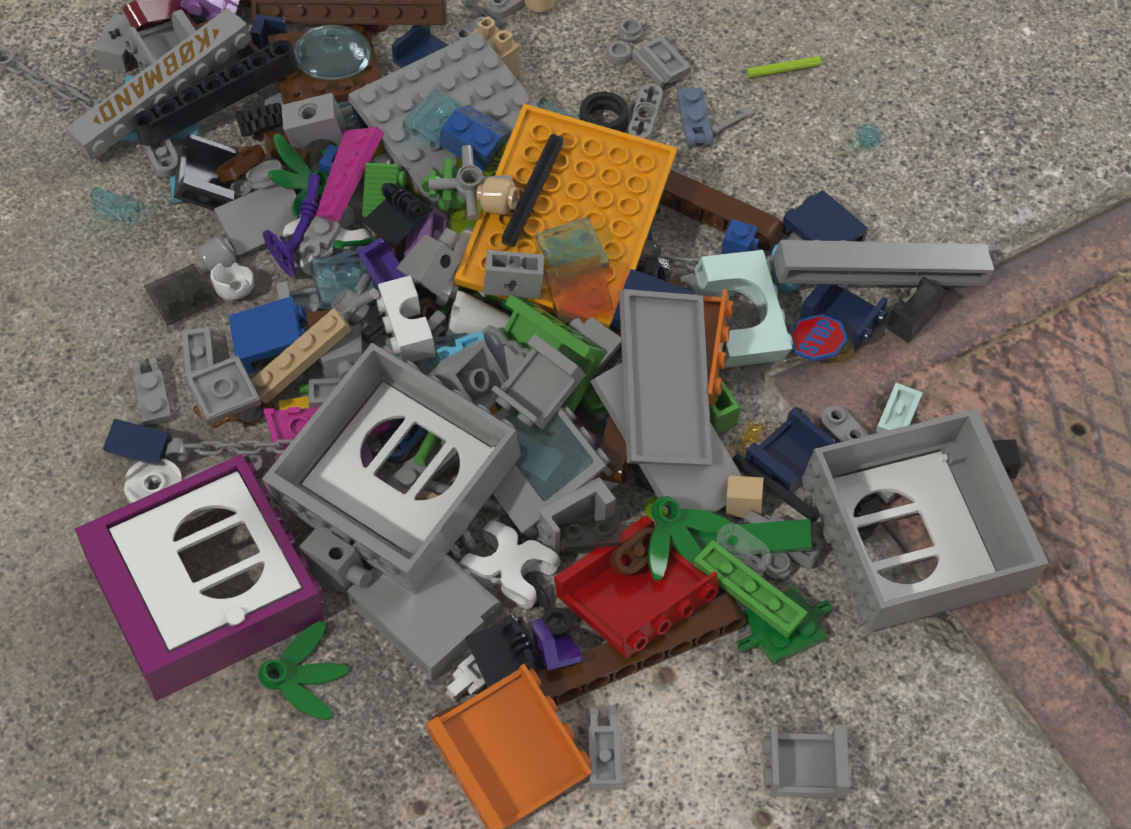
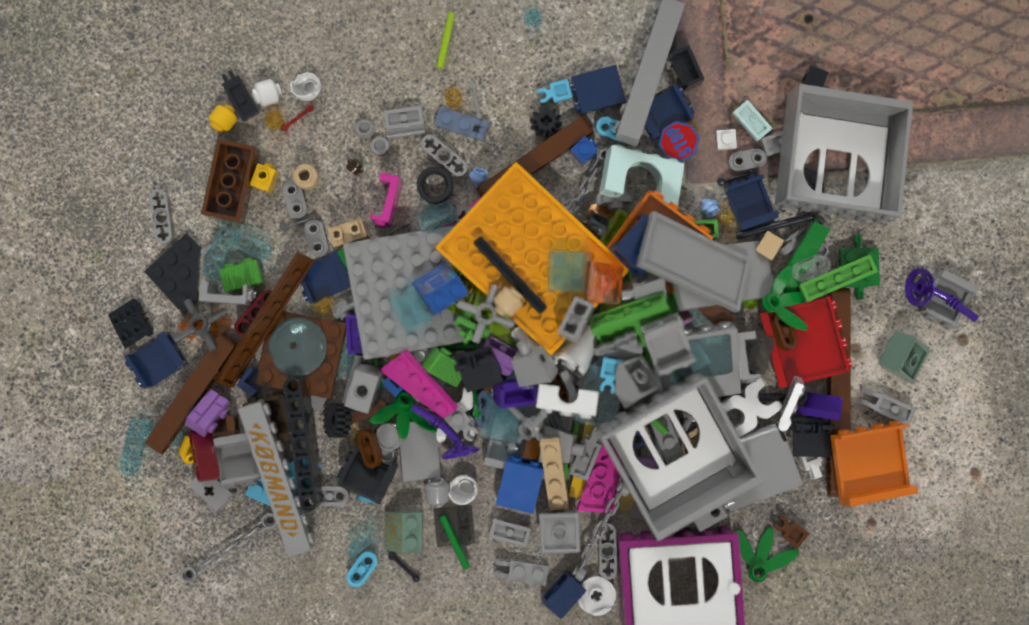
camera: 65 degrees left, 30 degrees up
(84, 219) = (362, 568): none -> medium azure plate
(111, 248) = (392, 556): none -> black hinge
(151, 304) = (454, 542): none -> green bar
(152, 246) = (404, 531): none -> sand green slope
(353, 697) = (792, 532): none -> reddish brown plate
(393, 60) = (322, 306): none -> clear yellow plate
(542, 602) = (790, 403): none -> hinge
(557, 73) = (395, 186): none -> dark pink panel
(579, 35) = (354, 166): none -> dark brown plate
(689, 738) = (904, 356): none -> sand green slope
(716, 102) = (455, 103): none -> clear yellow bush
(751, 190) = (539, 117): none -> black gear
(754, 409) = (709, 207): none -> light blue plate
(792, 191) = (559, 91): none -> medium azure plate
(807, 770) = (926, 286): none -> dark purple dish
(855, 395) = (726, 139): none -> white plate

